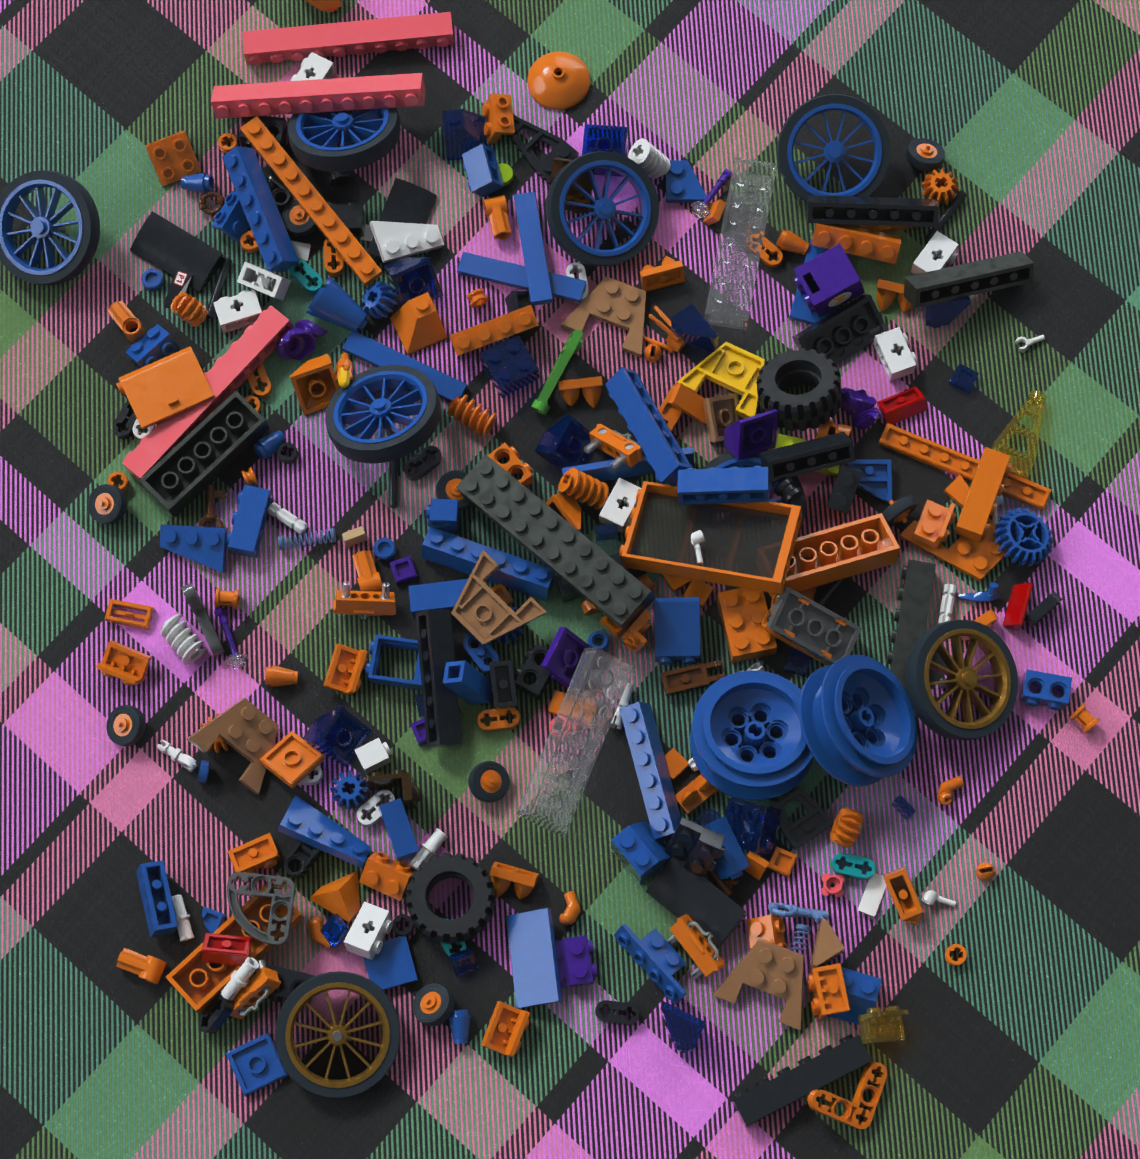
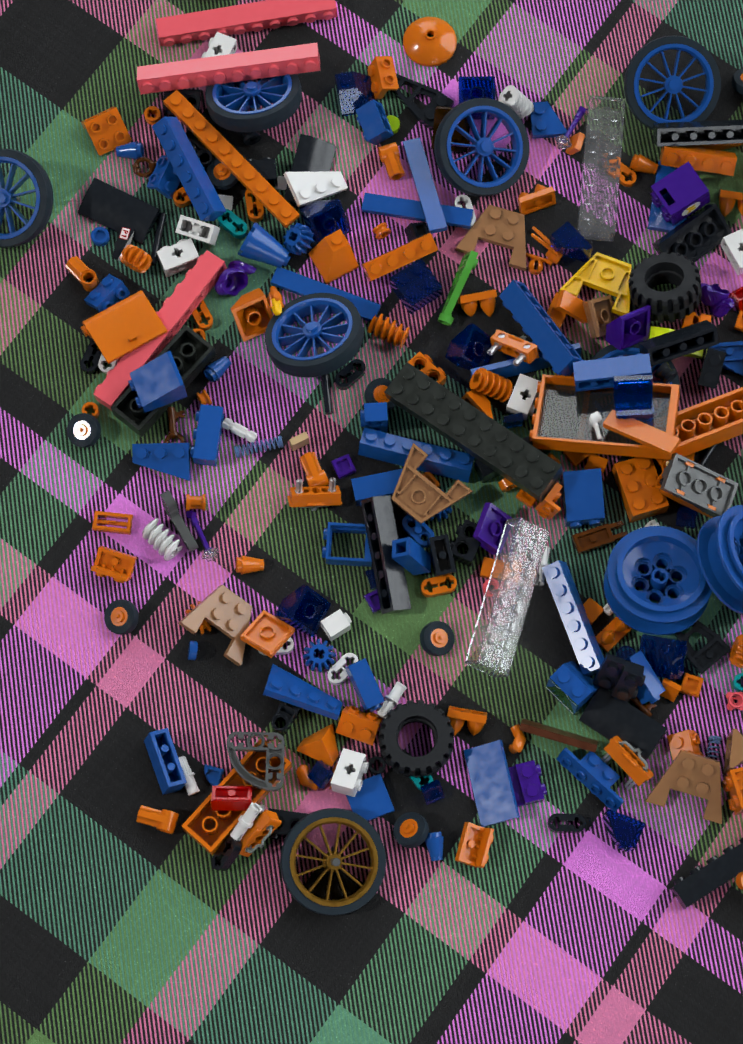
camera: 10 degrees left, 0 degrees up
(177, 755) = (176, 643): white piece -> none
(194, 456) = (157, 383): none -> blue slope
(255, 855) = (244, 717): orange bracket -> none
(256, 1064) = (265, 893): blue tile -> none
(291, 447) = (234, 369): black bush -> none
(345, 669) = (304, 554): orange bracket -> none
(384, 549) = (325, 450): blue tile -> none
(398, 779) = (362, 642): dark brown bracket -> none
(599, 635) = (517, 508): blue plate -> none
(618, 908) = (558, 735): none -> copper tile
(744, 516) = (633, 396): none -> clear blue bracket
(748, 560) = (642, 433): none -> orange tile
(794, 911) = (705, 725): medium blue piece -> none

